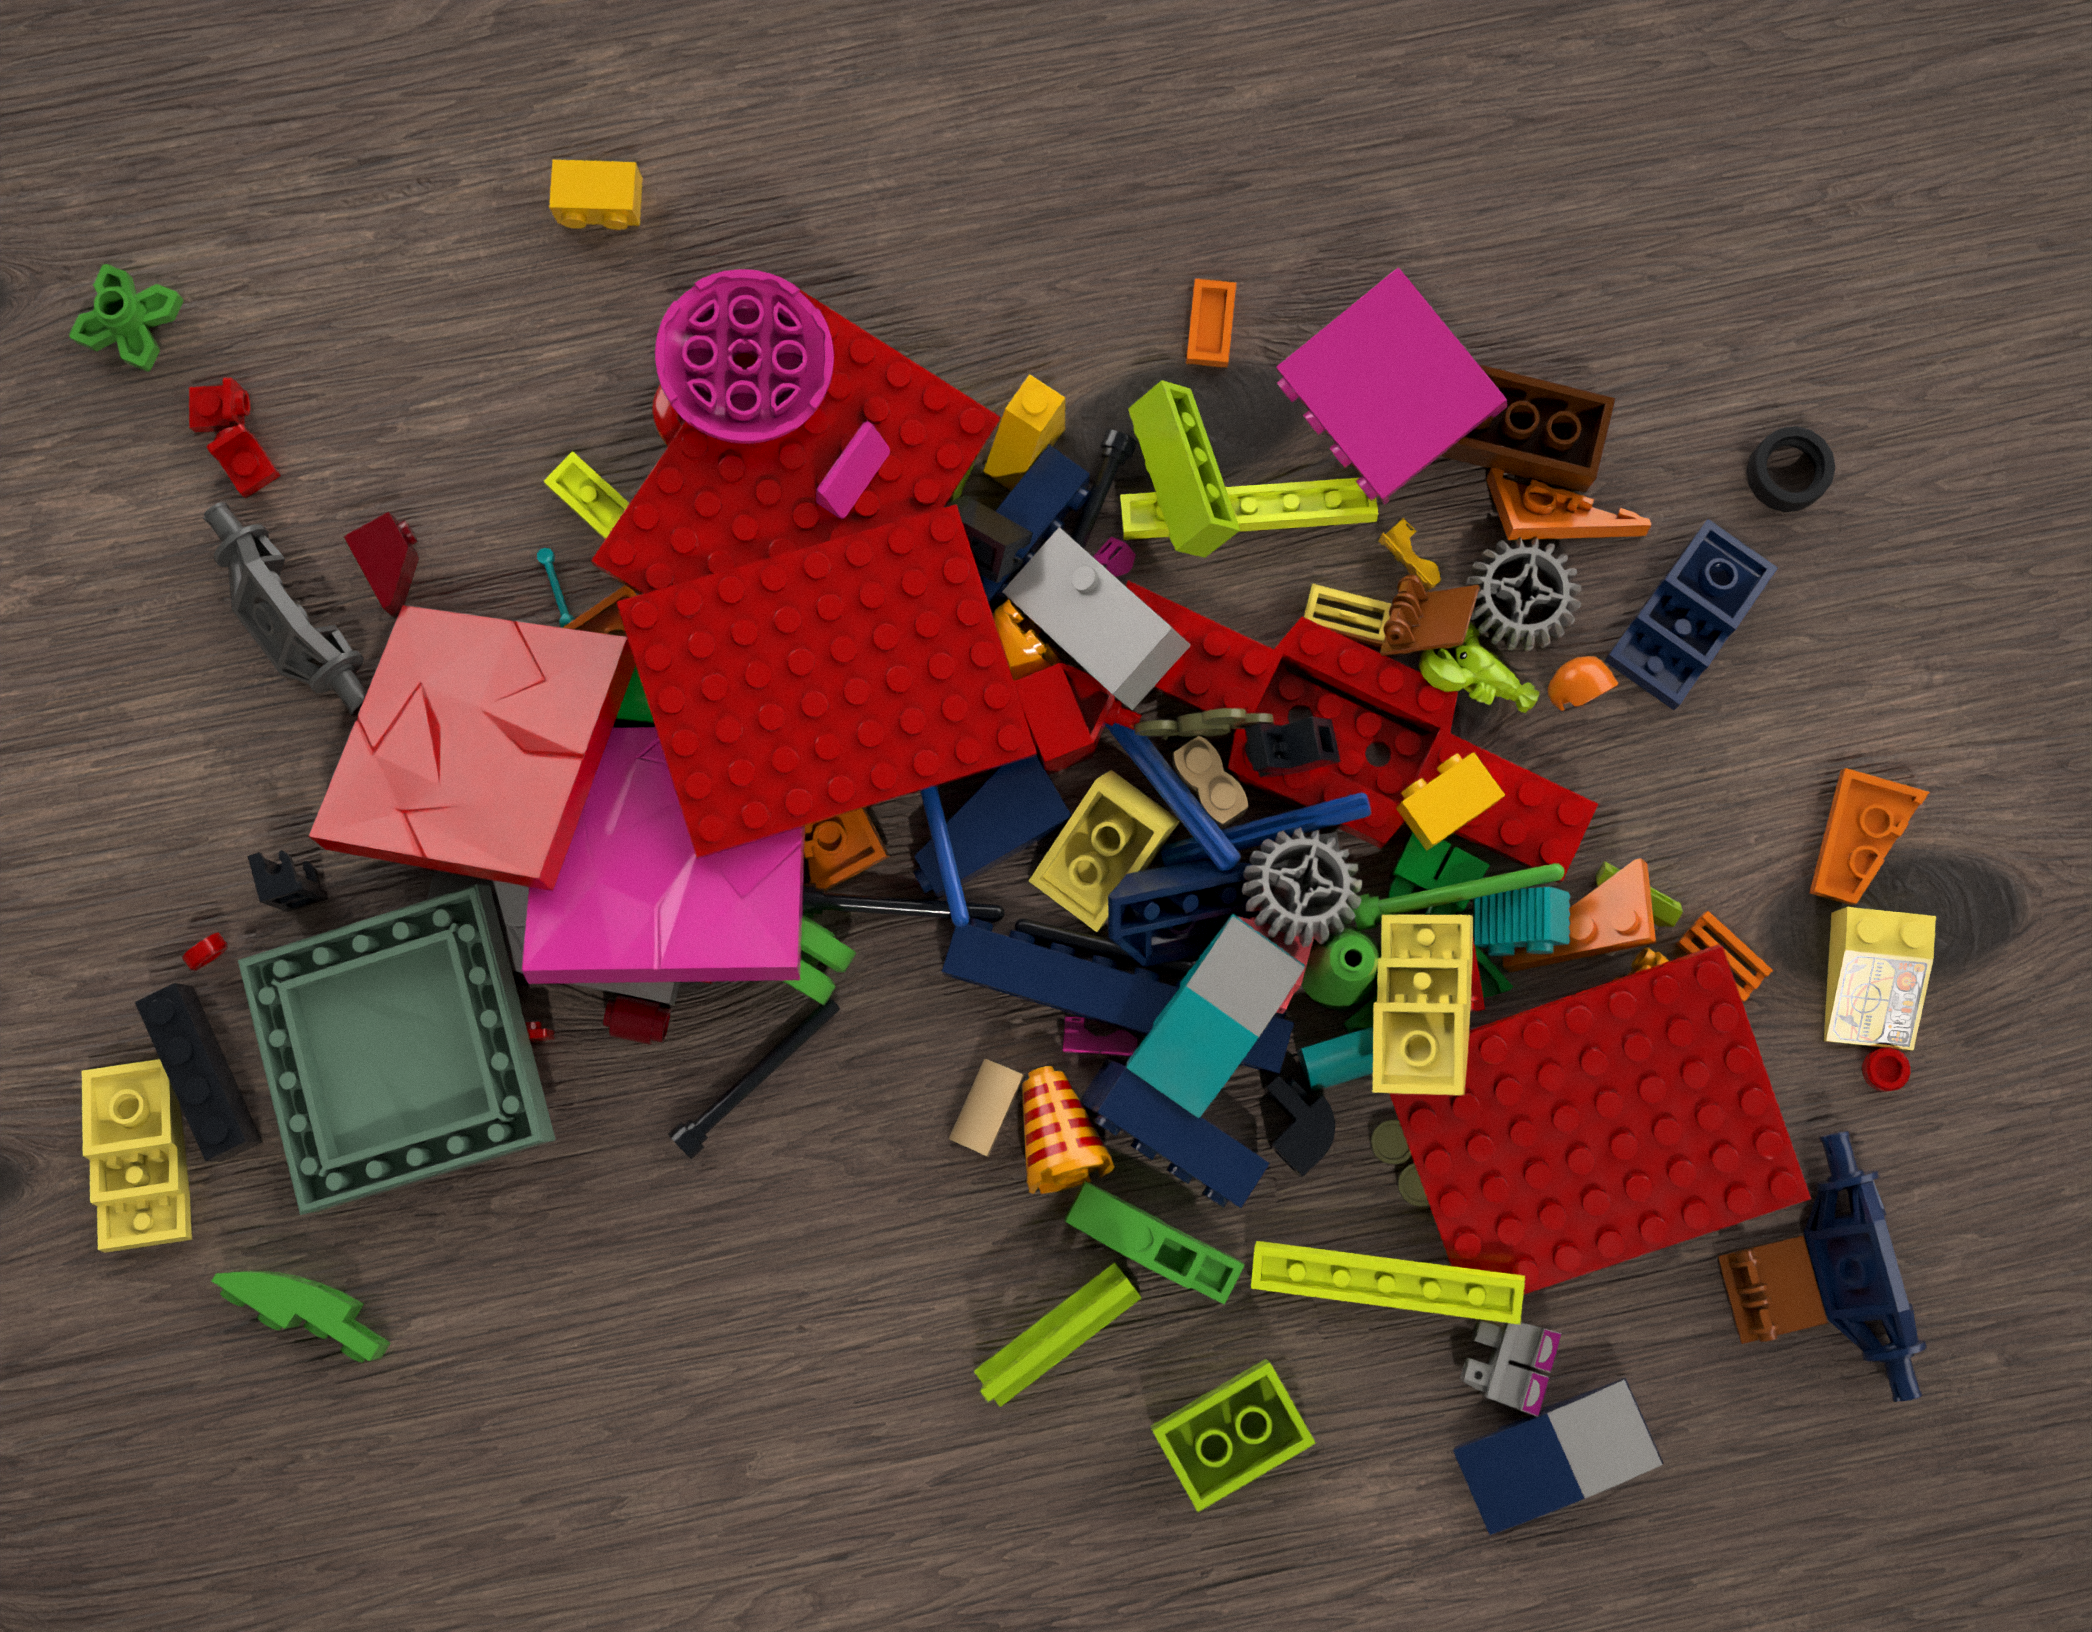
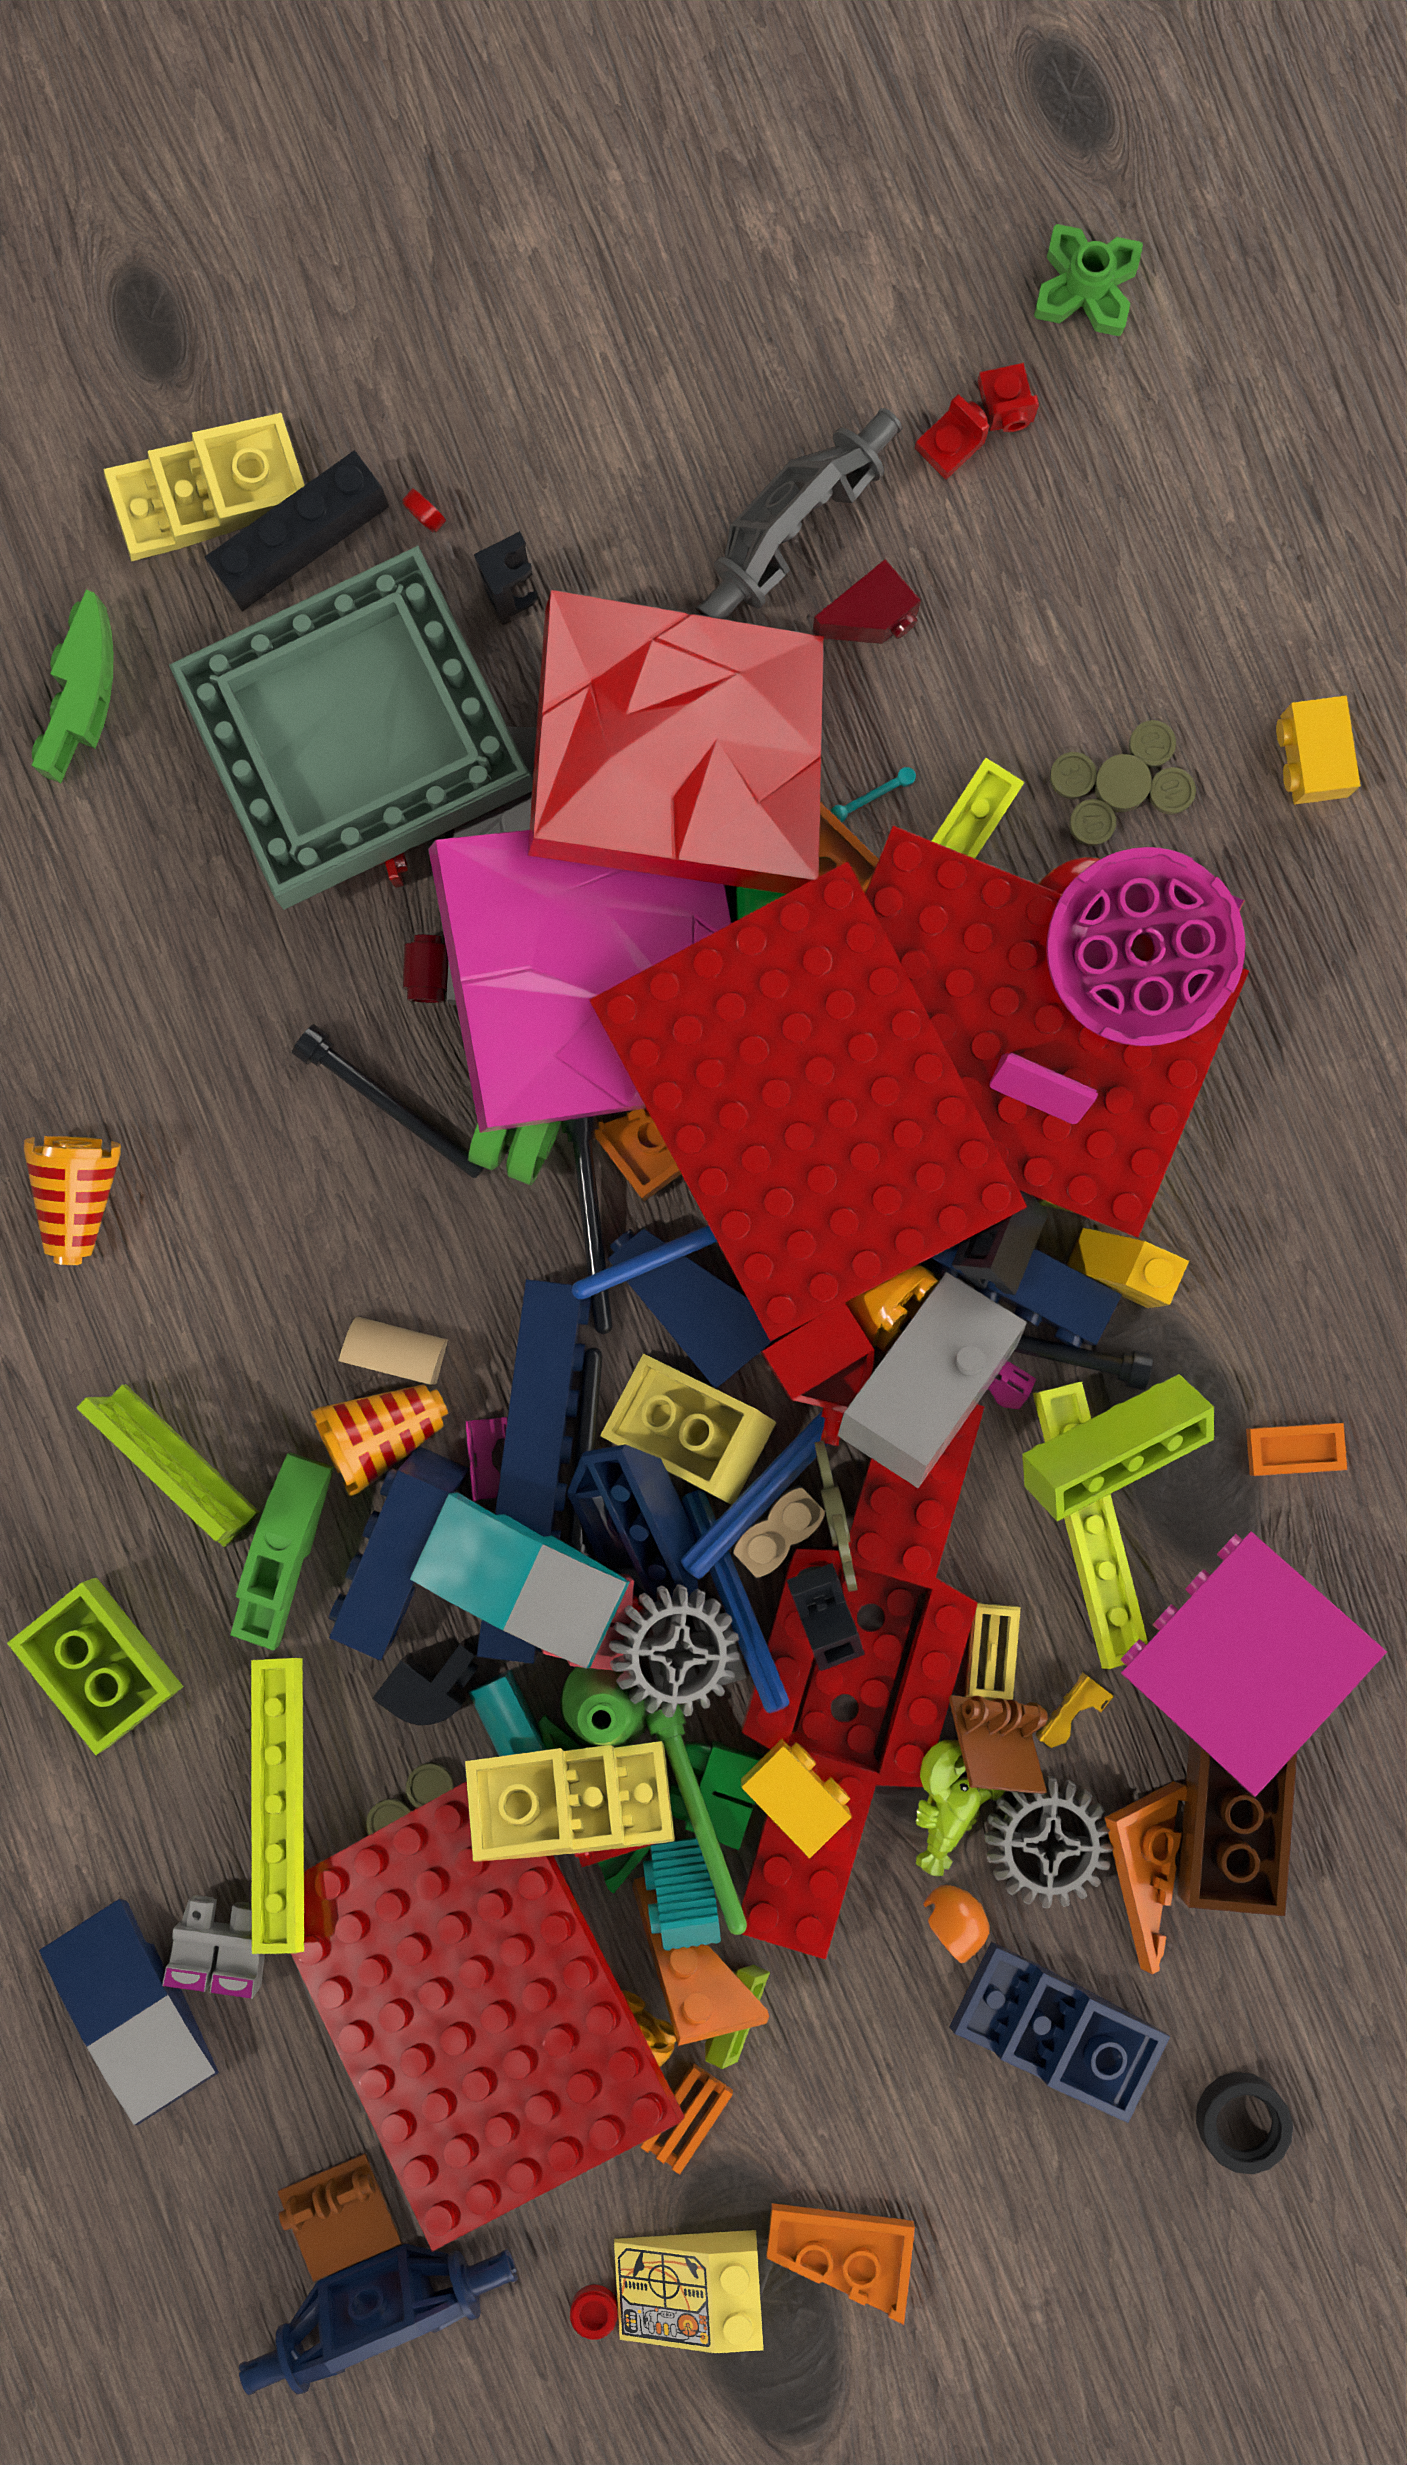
camera: 80 degrees right, 5 degrees up
(590, 368) = (1122, 783): none -> olive piece
(783, 1389) = (70, 1192): none -> light orange cone

